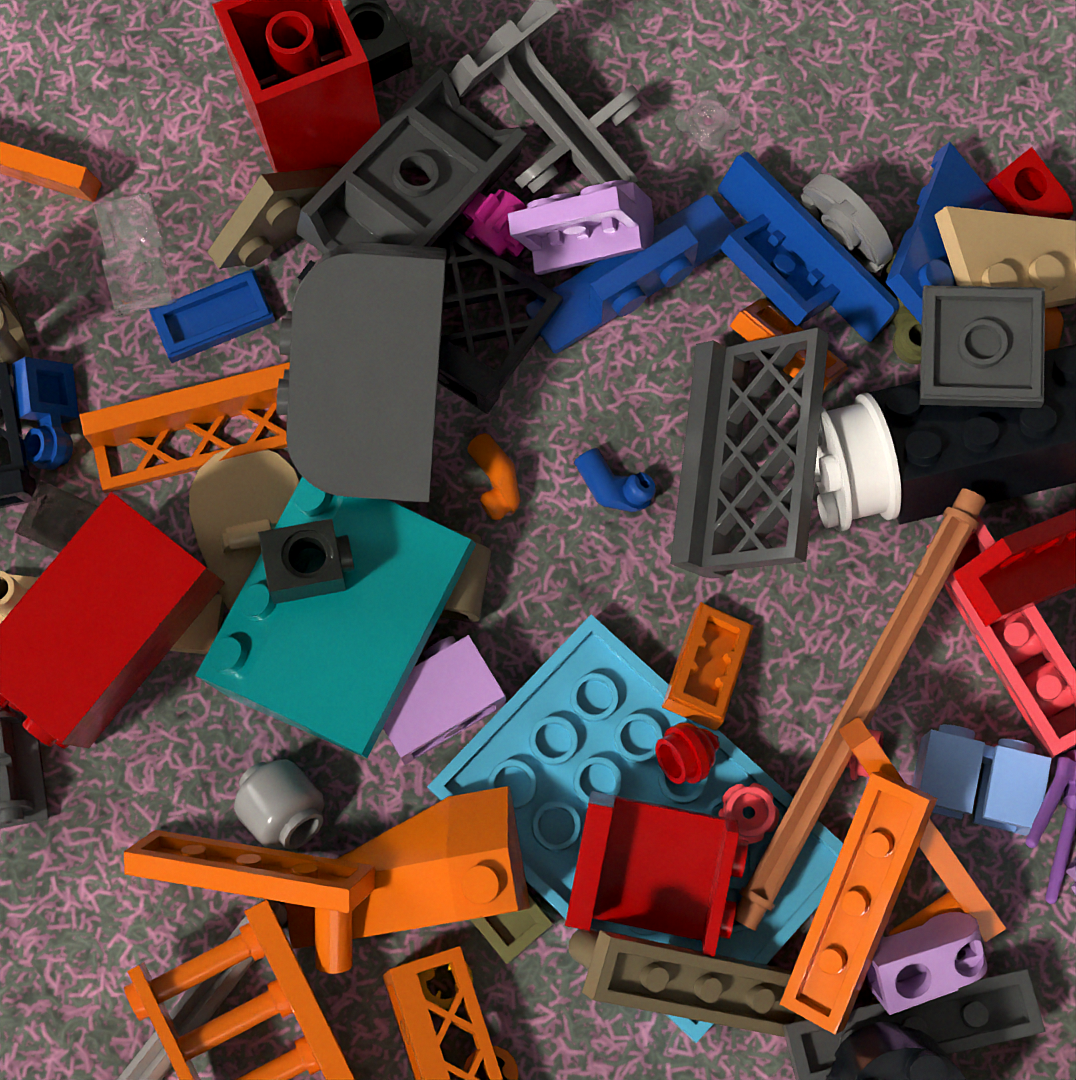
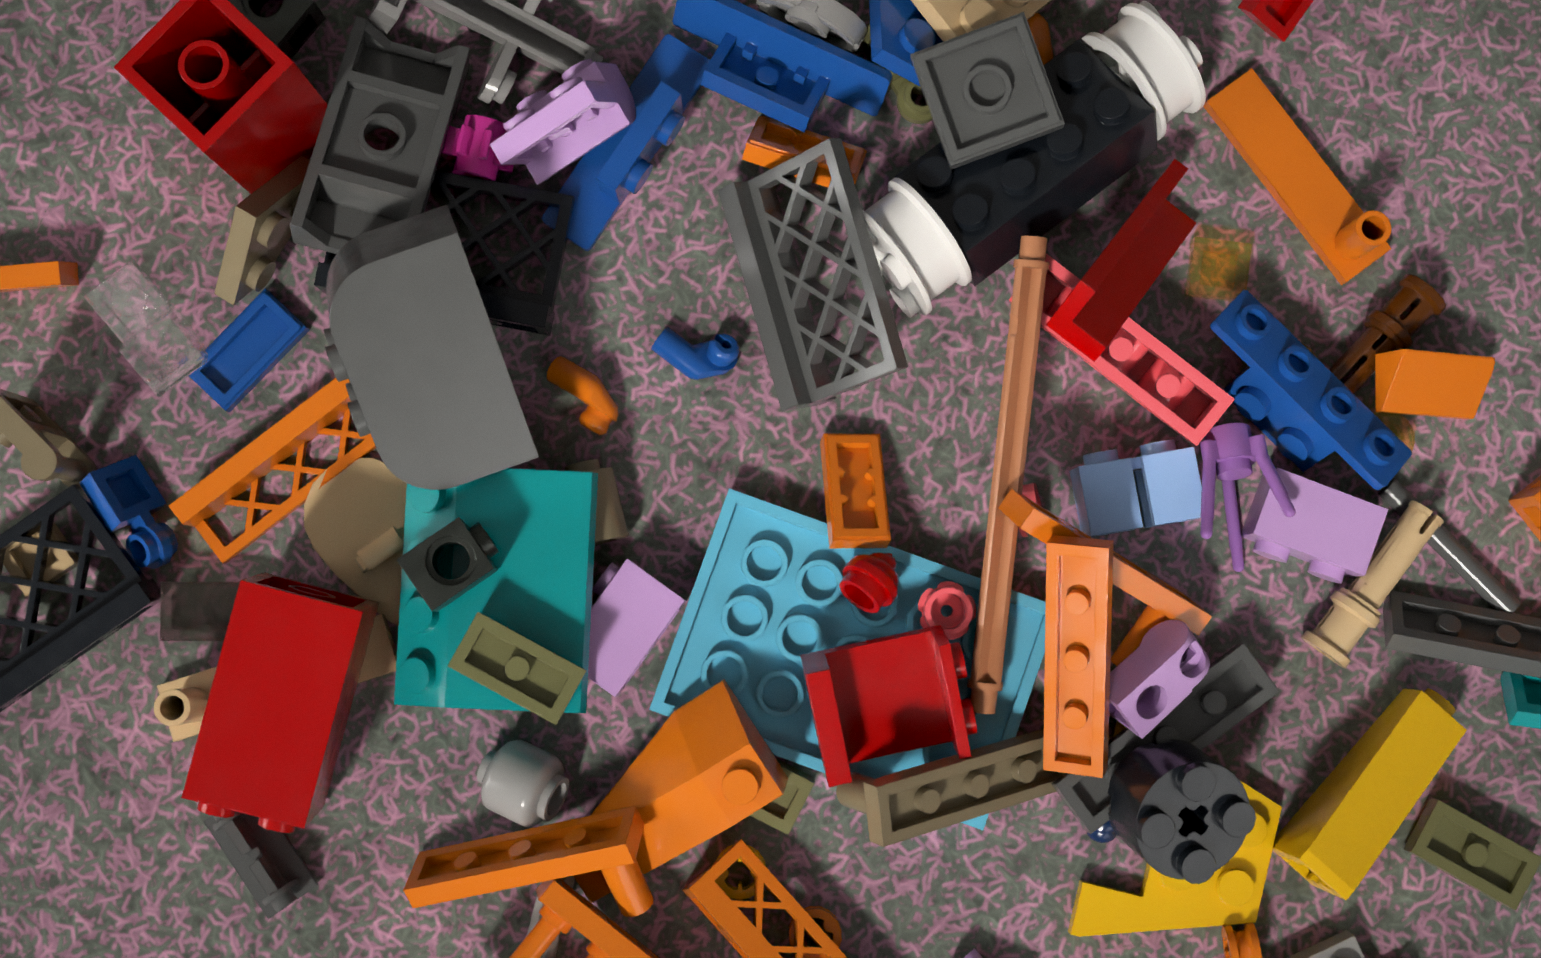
camera: 30 degrees left, 10 degrees up
(323, 683) = (517, 668): none -> olive plate

